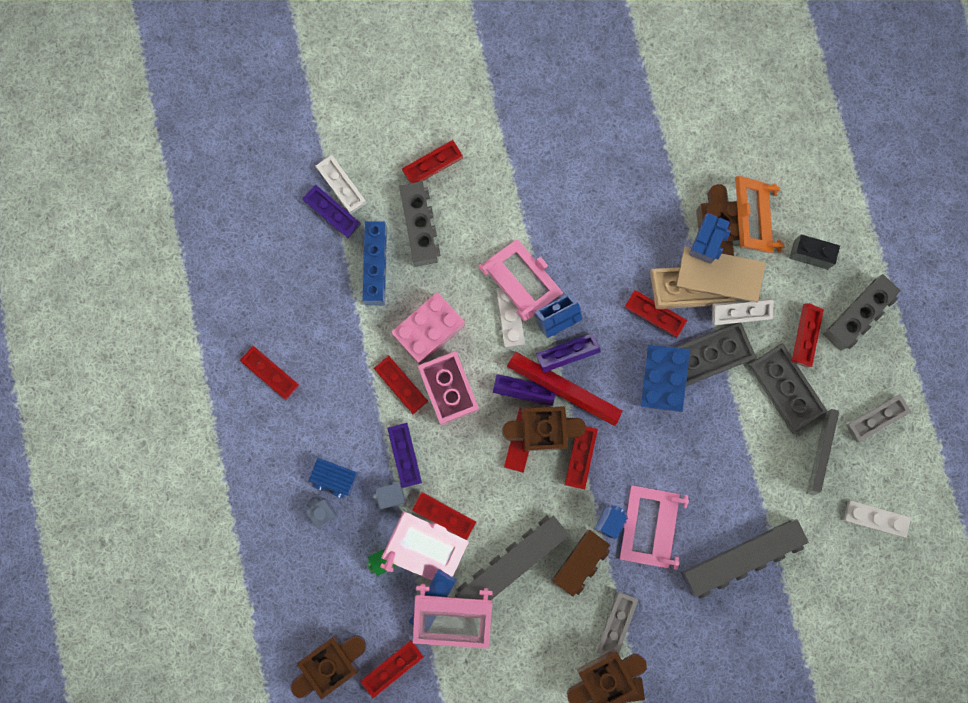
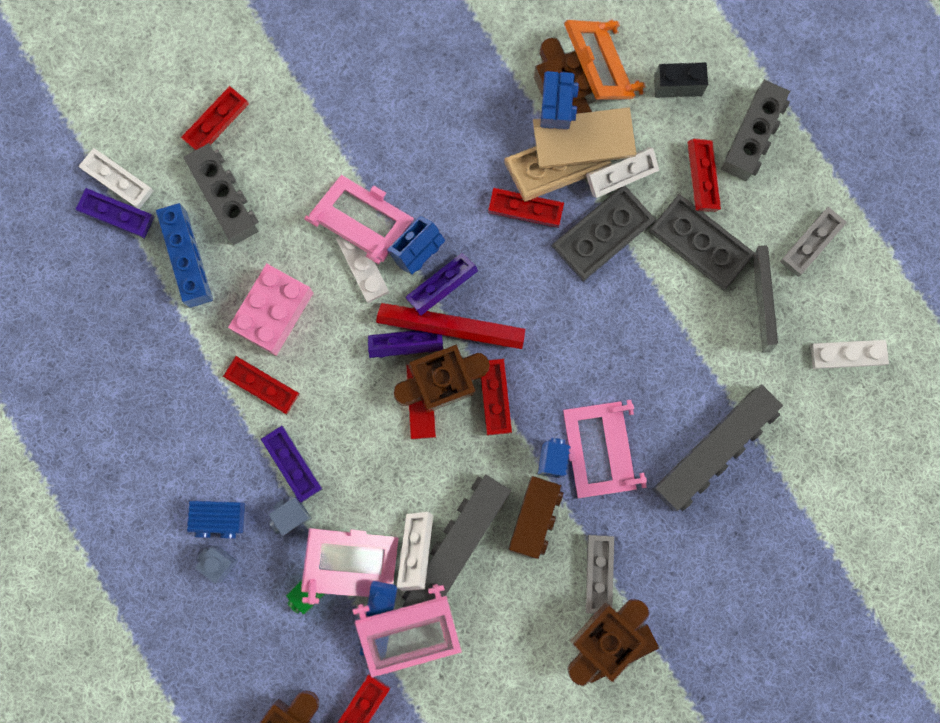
camera: 20 degrees left, 0 degrees up
(269, 372) = (102, 422): red tile -> none
(444, 515) = (360, 518): red plate -> none
(448, 388) = (316, 370): bright pink brick -> none
(478, 557) = (415, 551): none -> white plate
(665, 378) = (560, 275): blue brick -> none

